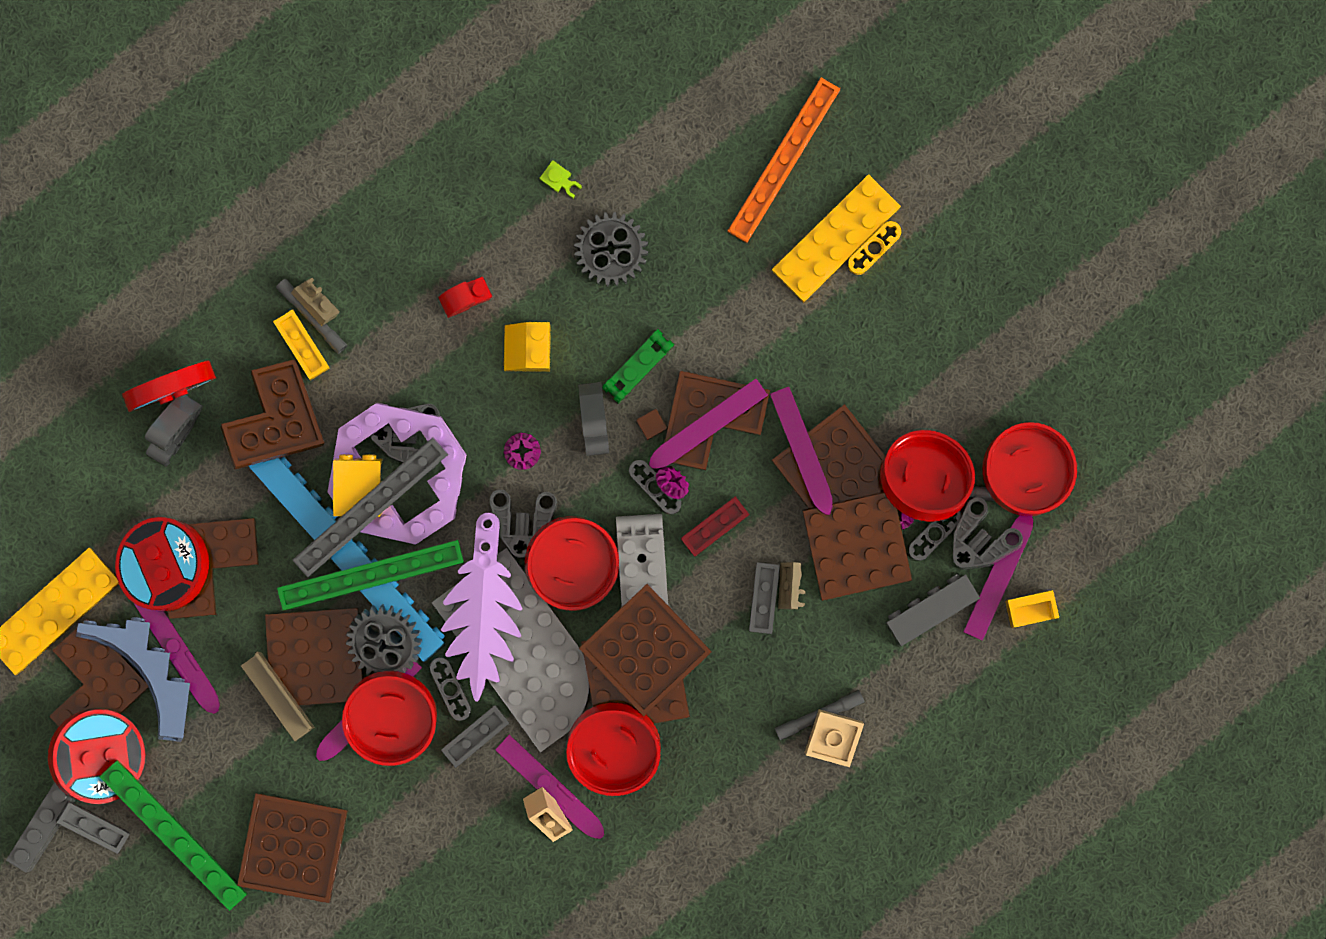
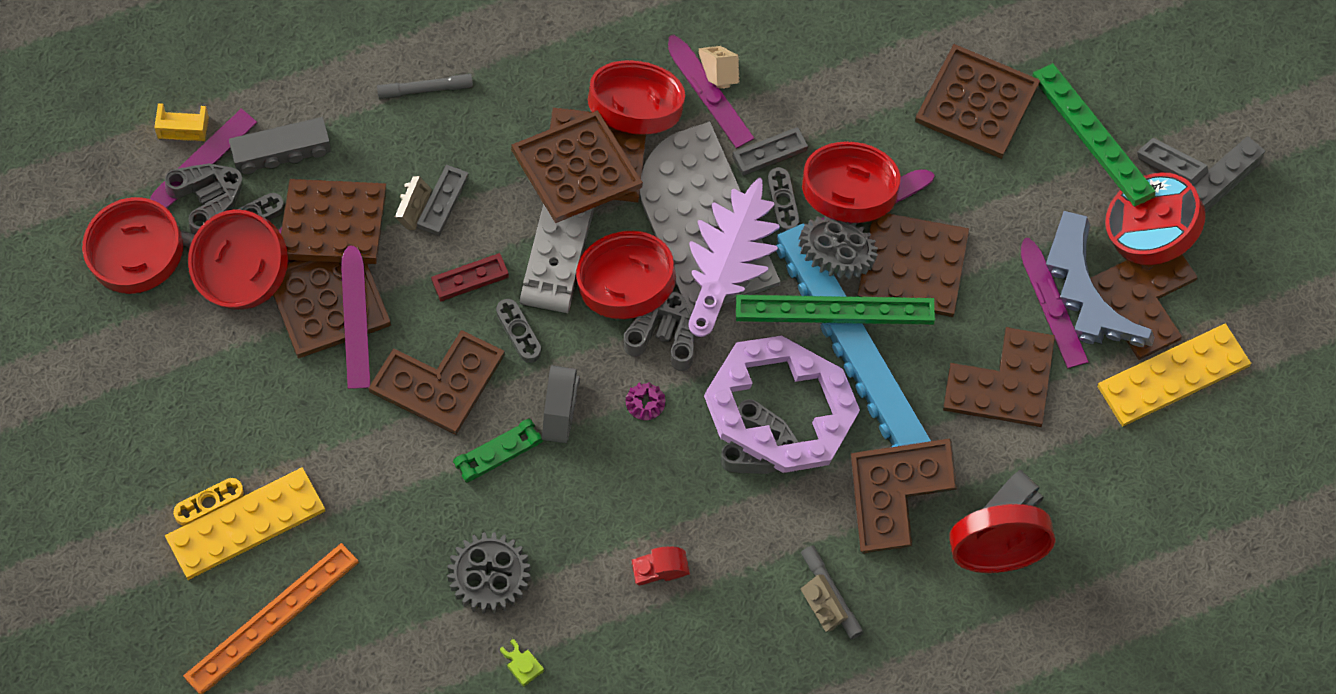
camera: 165 degrees left, 20 degrees down
(162, 564) = (1049, 382): brick -> none
(277, 696) = (958, 230): dark tan panel -> none
(301, 344) = (850, 564): yellow plate -> none
(353, 480) = (826, 394): yellow panel -> none
(370, 507) = (817, 366): dark grey tile -> none
(527, 347) = (608, 497): yellow slope -> none
(651, 424) = (502, 391): reddish brown tile -> none
(675, 489) = (505, 331): magenta gear -> none
(708, 425) = (443, 368): magenta piece -> none
(834, 738) = (417, 59): tan plate -> none

